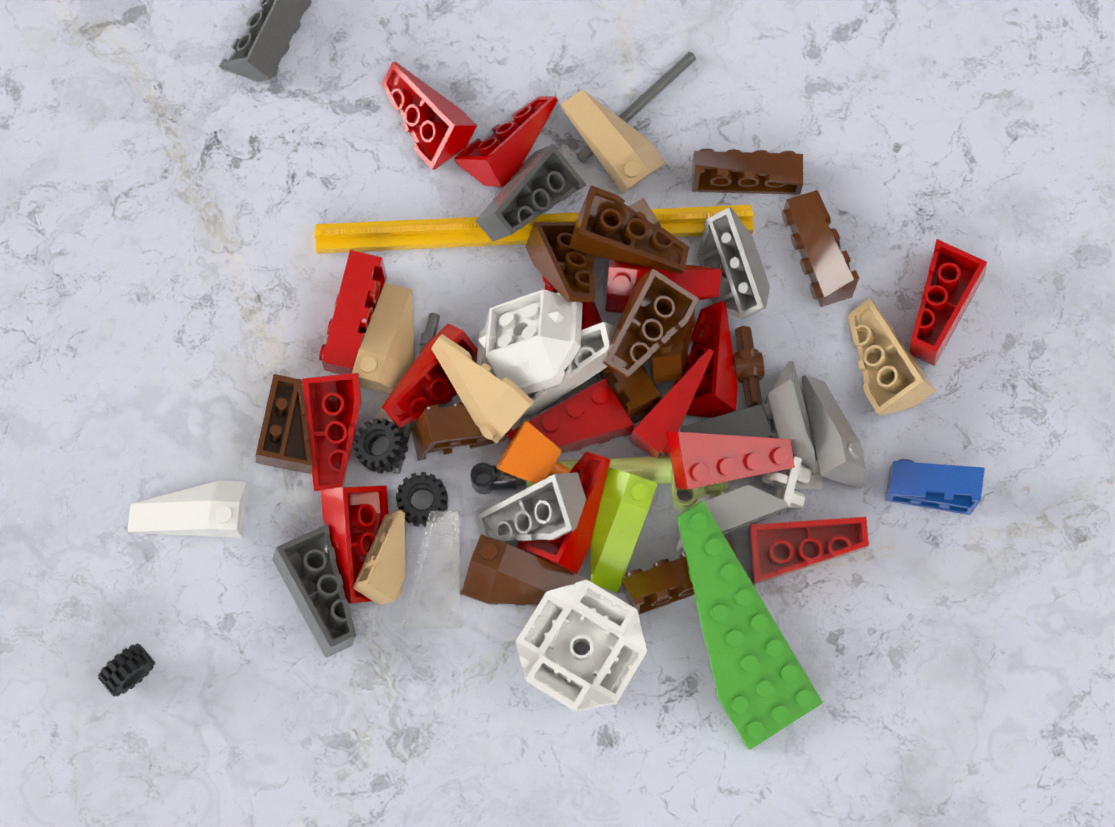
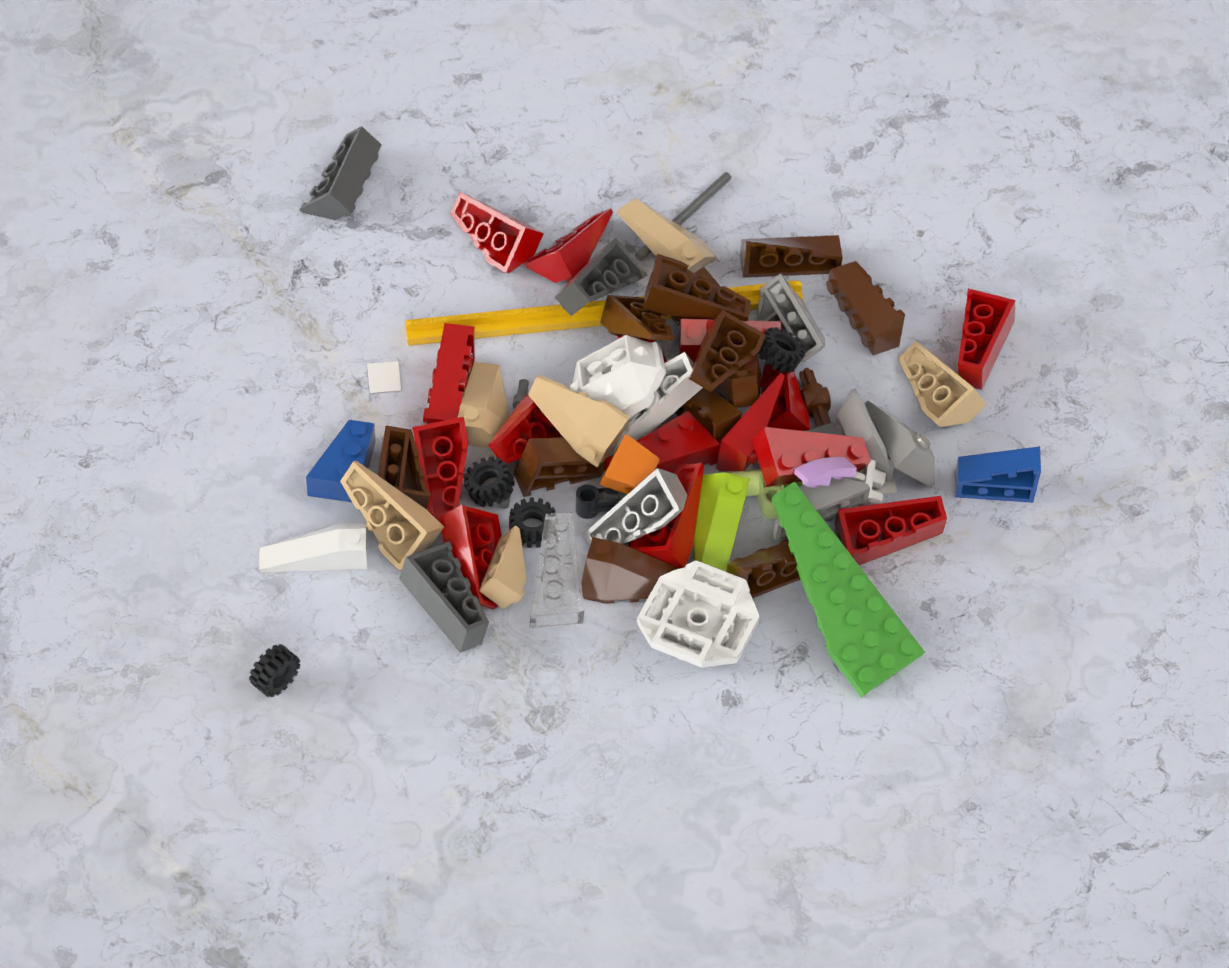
camera: 10 degrees left, 20 degrees down
(230, 408) = (351, 444): none -> blue wedge
(276, 492) = (393, 517): none -> tan wedge
(286, 293) = (384, 377): none -> white sticker
(724, 301) = (781, 350): none -> black tyre
(736, 486) = (822, 470): none -> lavender slope

